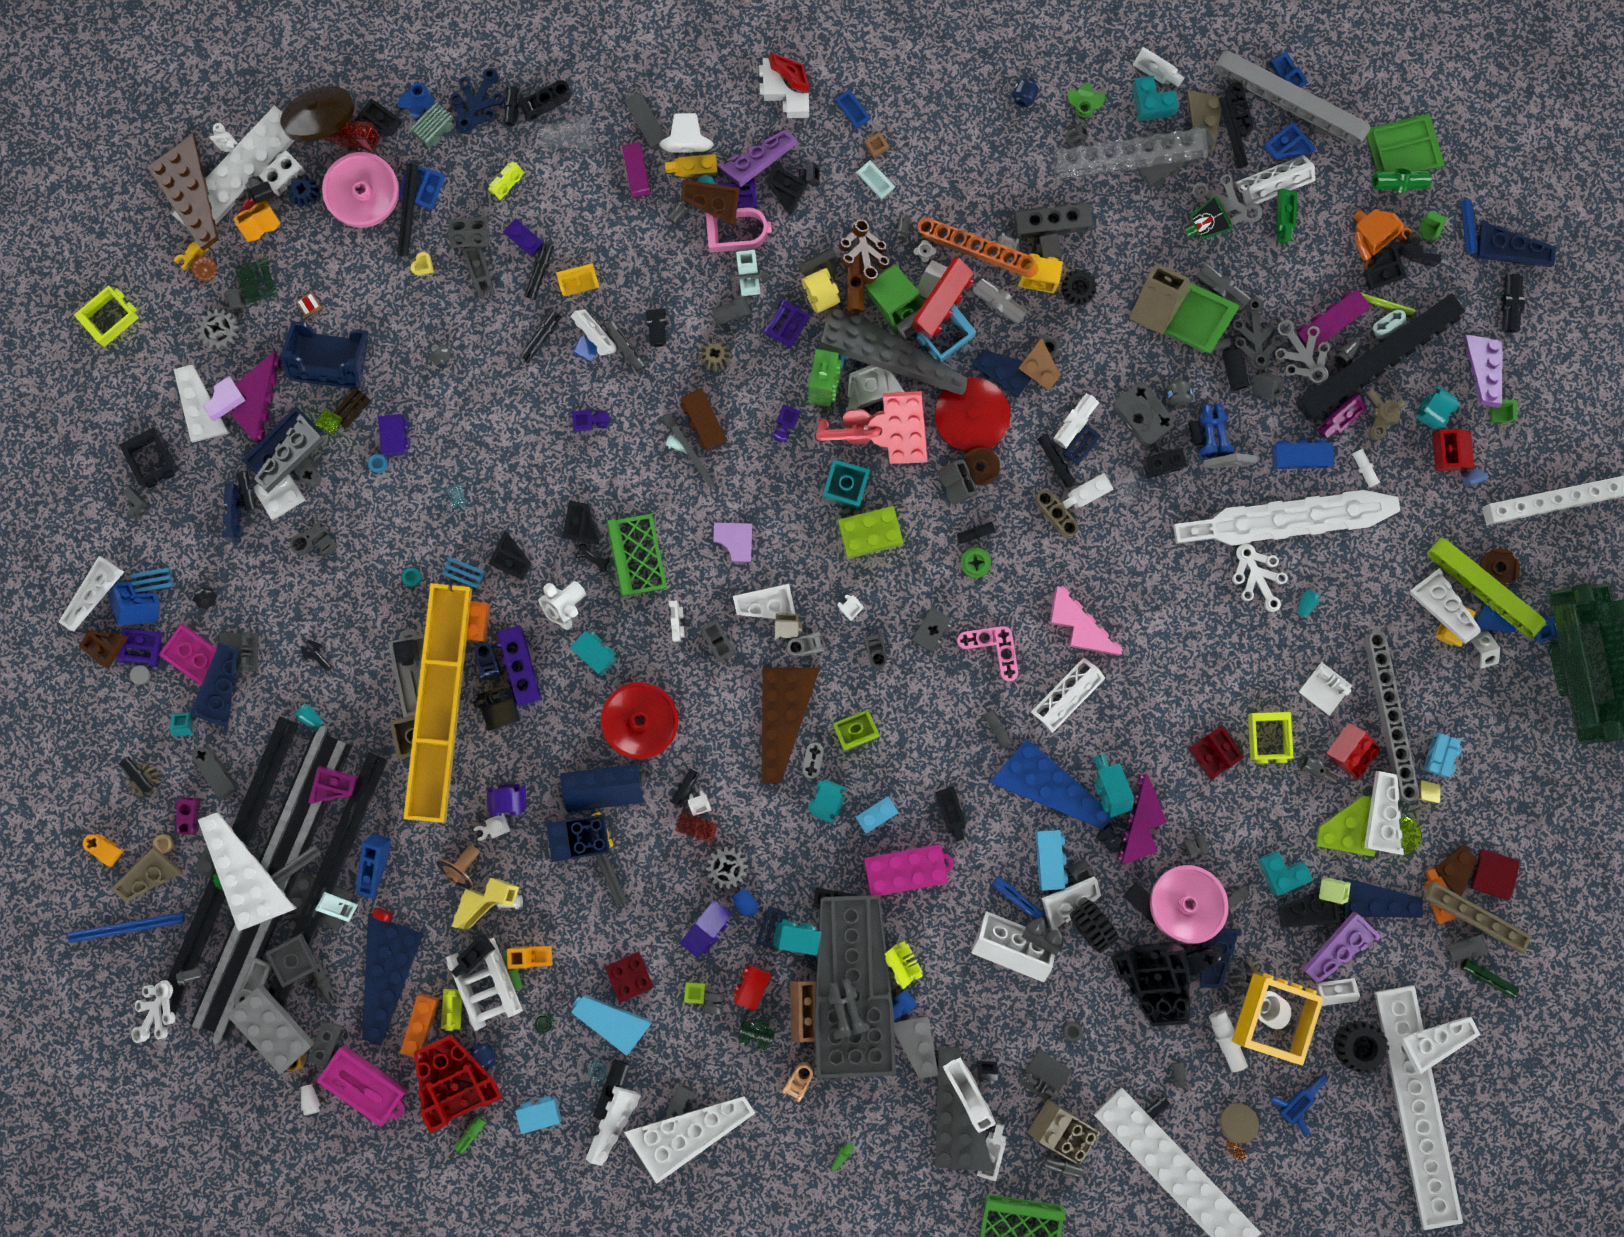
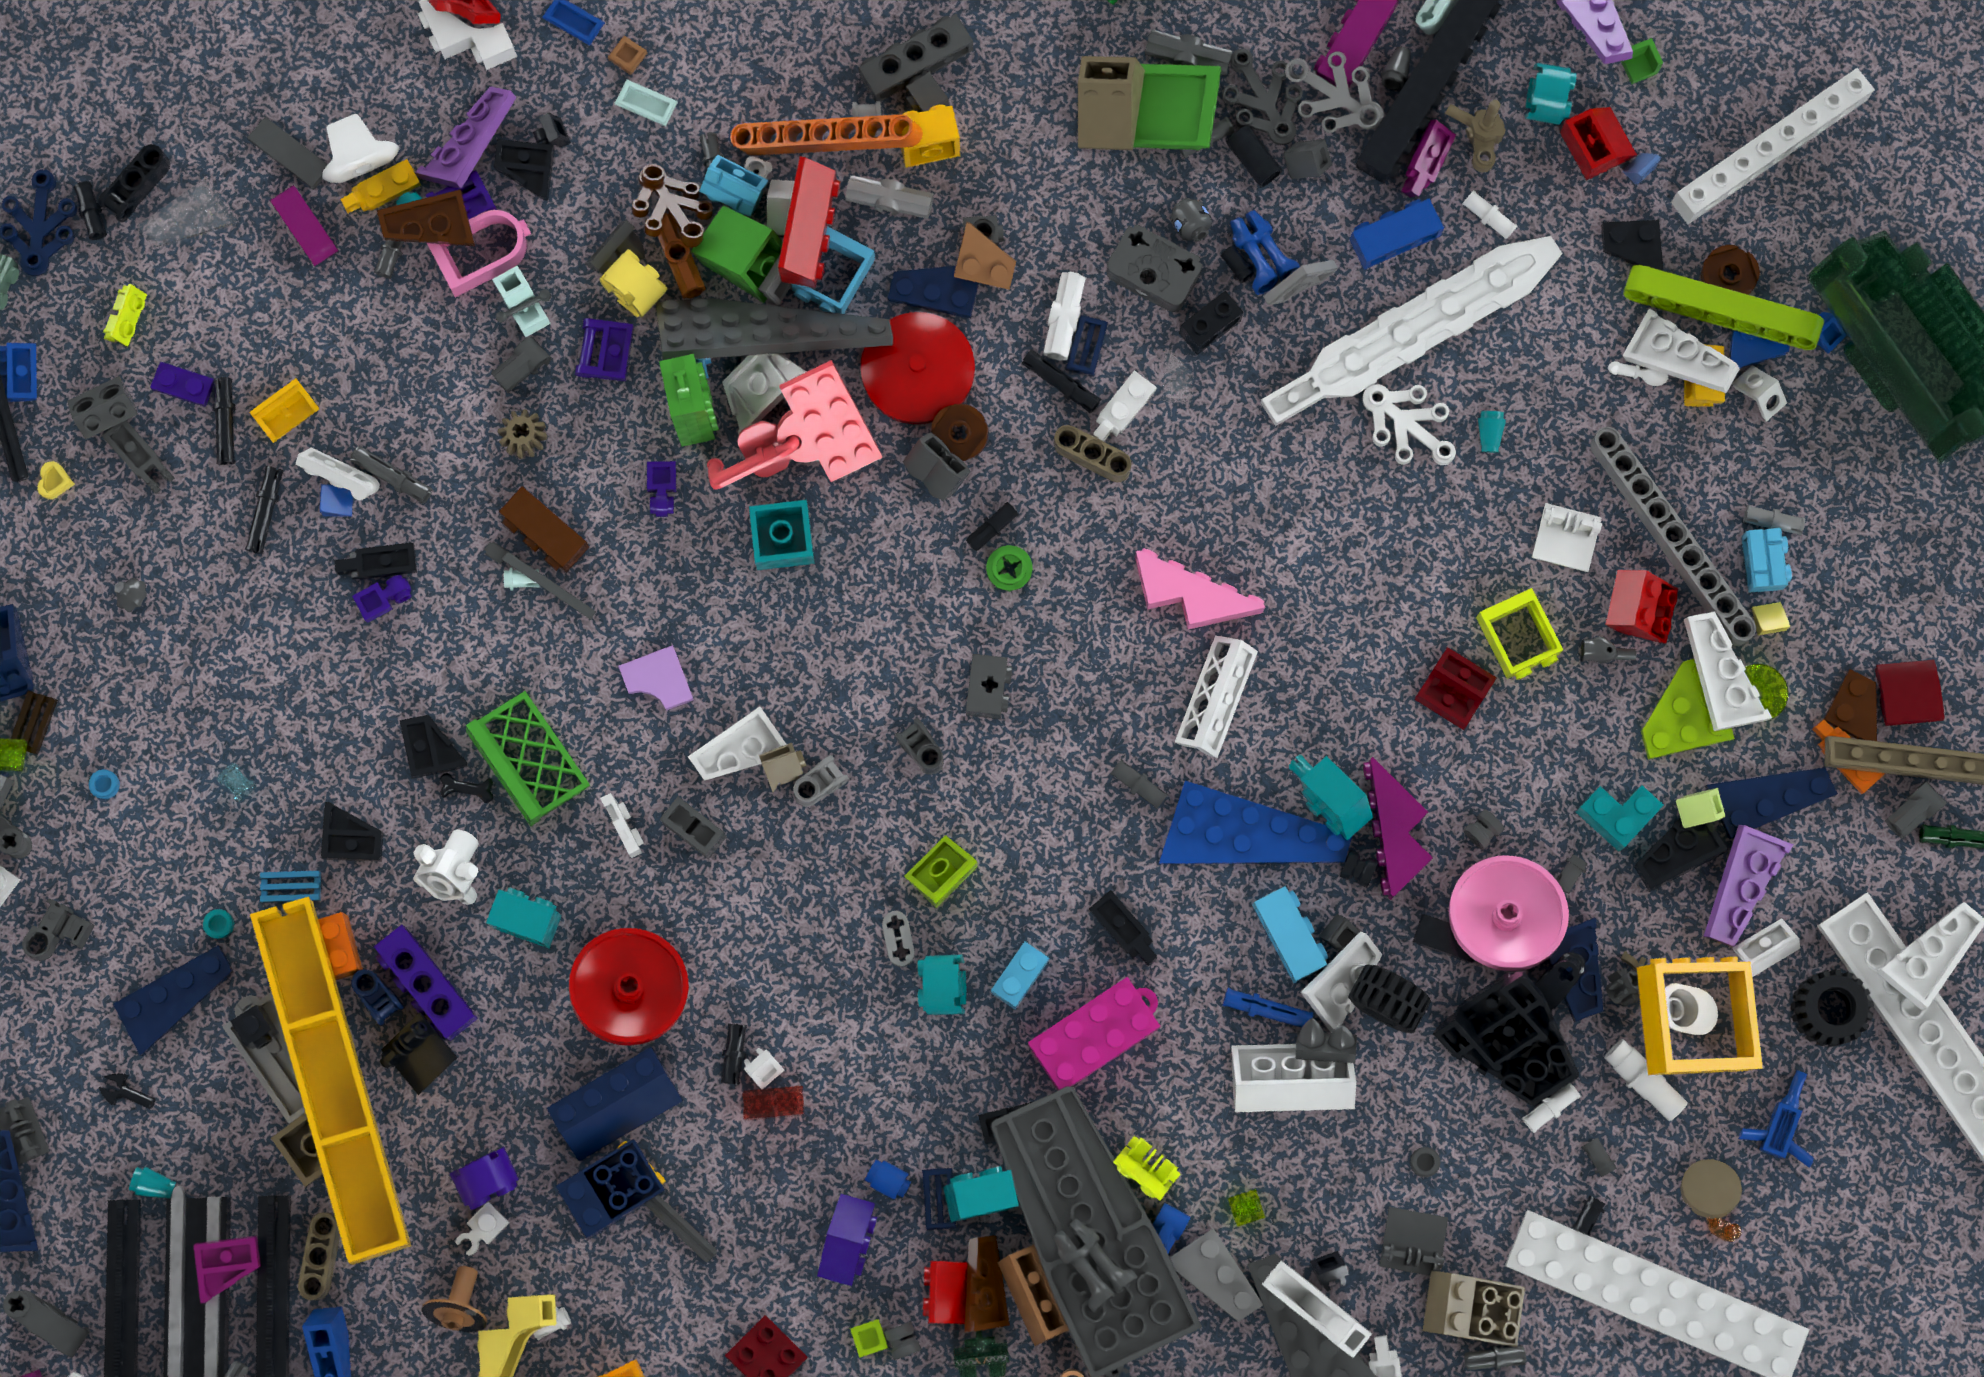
camera: 20 degrees left, 5 degrees down
(363, 610) = (164, 1002): none -> dark blue wing
(382, 808) = (309, 1267): none -> dark tan beam
(393, 435) = (110, 734): dark purple brick -> none
(596, 397) = (379, 561): none -> black hinge
(656, 322) = (422, 425): black piece -> none
(731, 876) = (850, 1149): light grey gear -> none
(776, 993) = (985, 1287): none -> reddish brown wing
(783, 708) = (826, 883): reddish brown wing -> none
(850, 607) = (861, 702): white tile -> none
(870, 532) = (844, 587): lime brick -> none
(907, 254) = (733, 186): none -> medium azure brick
(953, 1012) = (1246, 1208): none -> clear neon green tile
(994, 640) = (1082, 664): bright pink beam -> none
(1083, 277) = (994, 117): black tyre -> none
(1162, 1032) = (1551, 1107): none -> white pin
(1421, 611) = (1648, 375): none -> white piece
(1448, 522) = (1634, 242): none -> black wing
(1458, 732) = (1774, 519): none -> light grey pin

